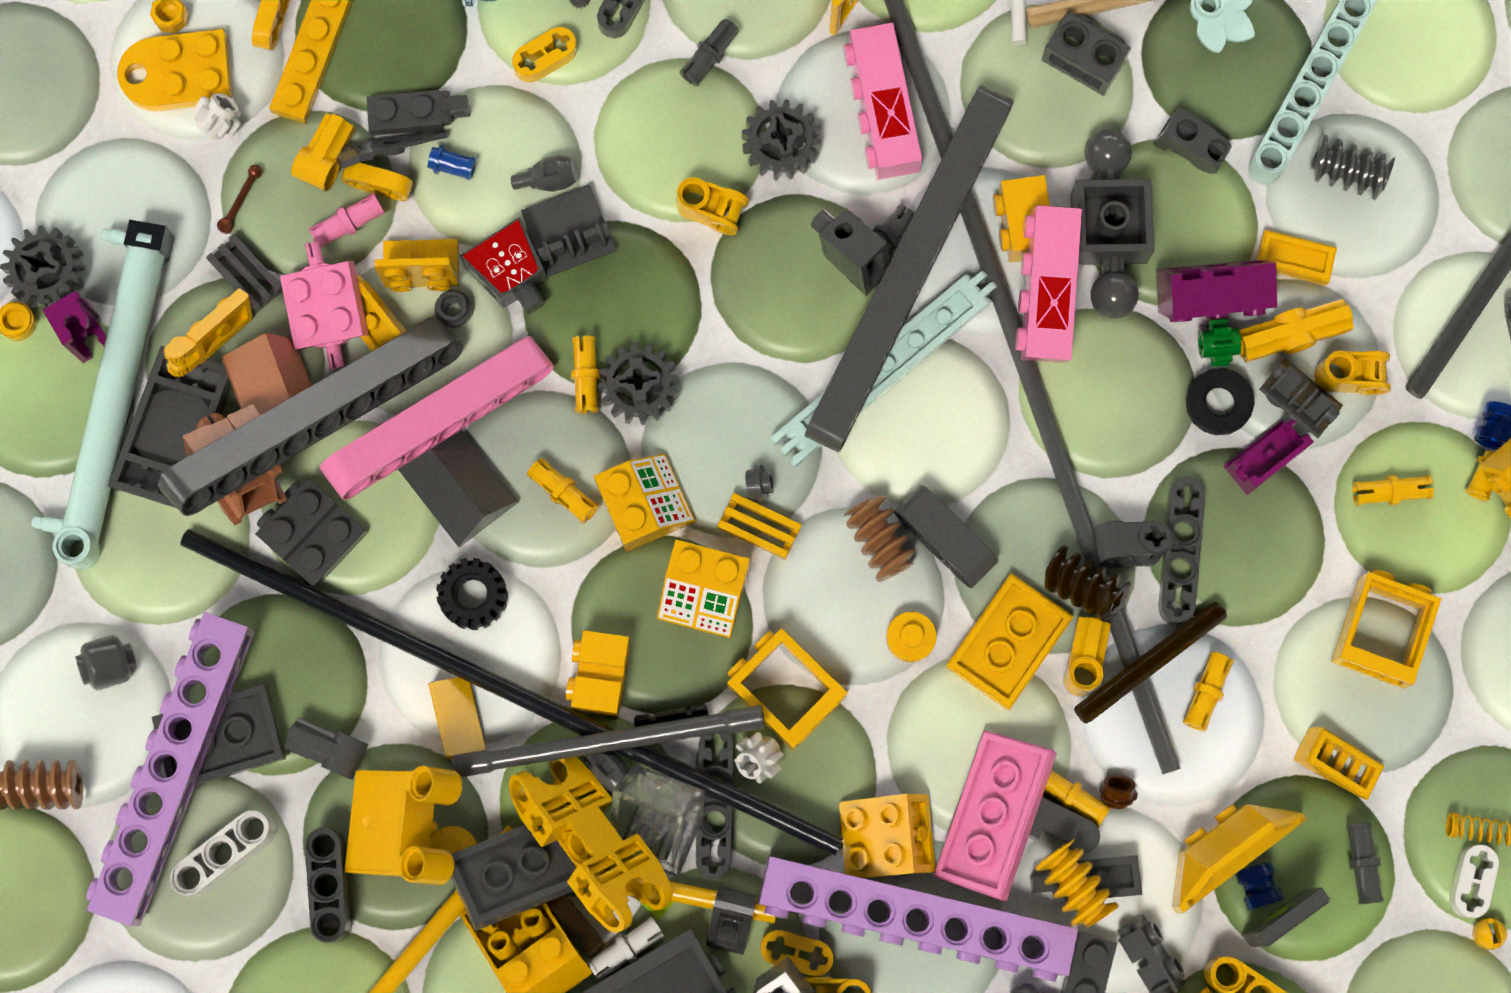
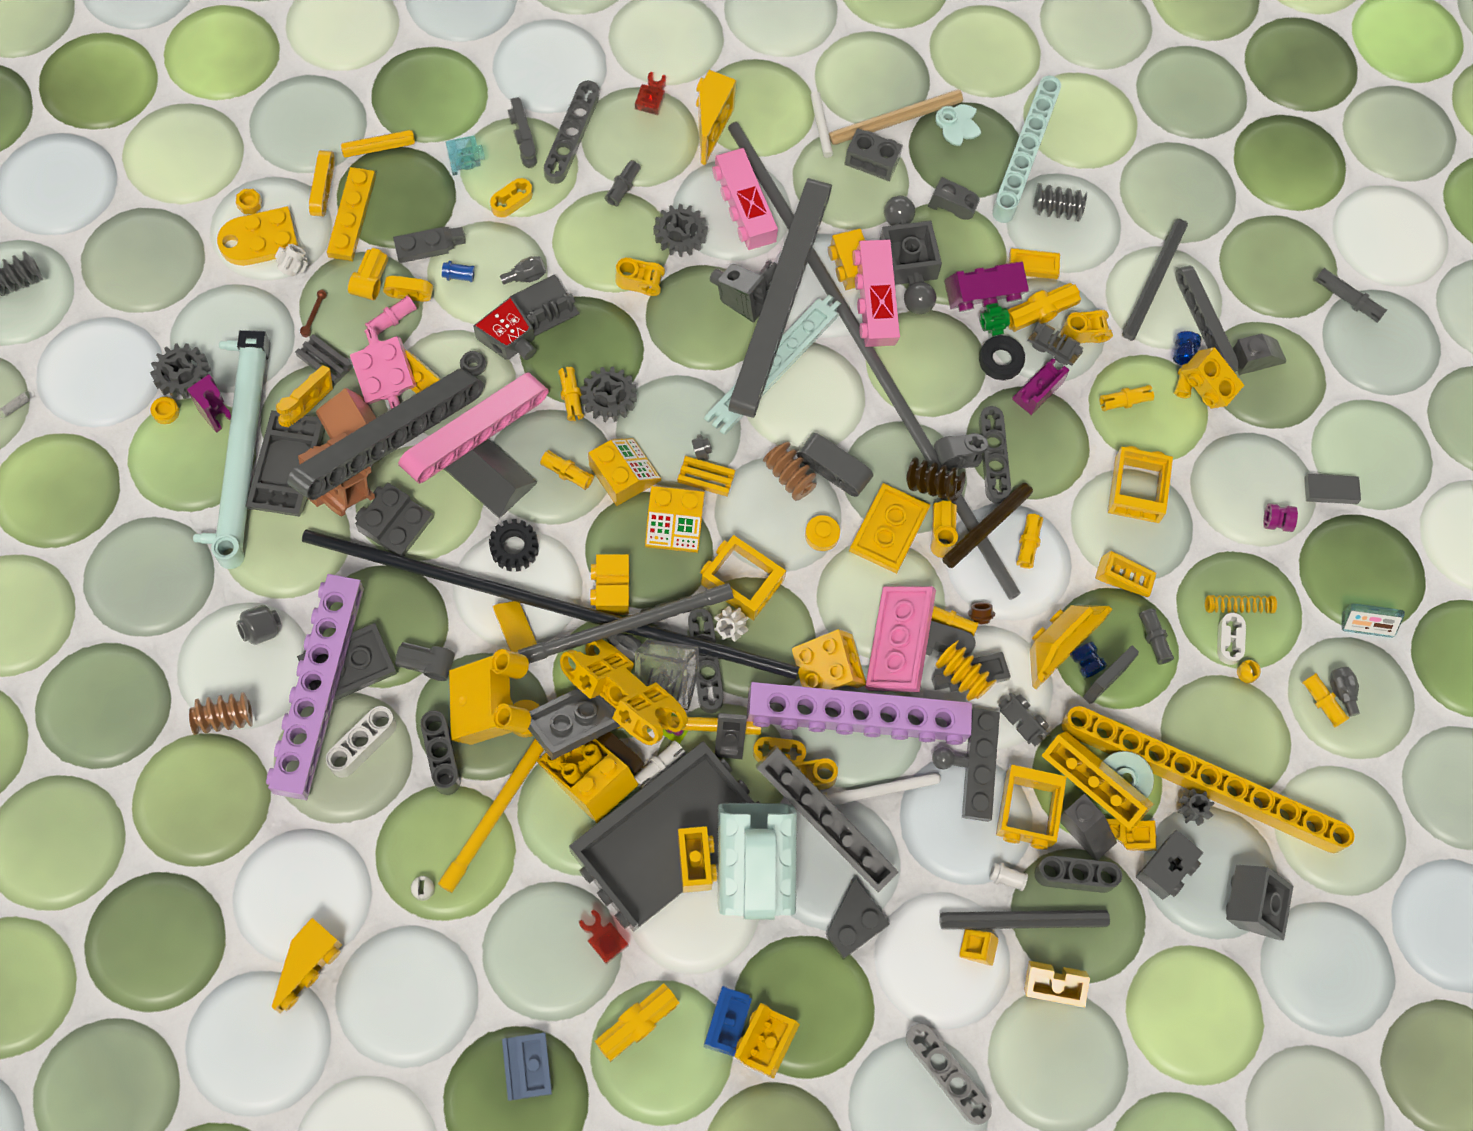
camera: 15 degrees left, 10 degrees down
(364, 150) = (414, 265): dark grey piece -> none
(419, 264) = (445, 338): yellow bracket -> none

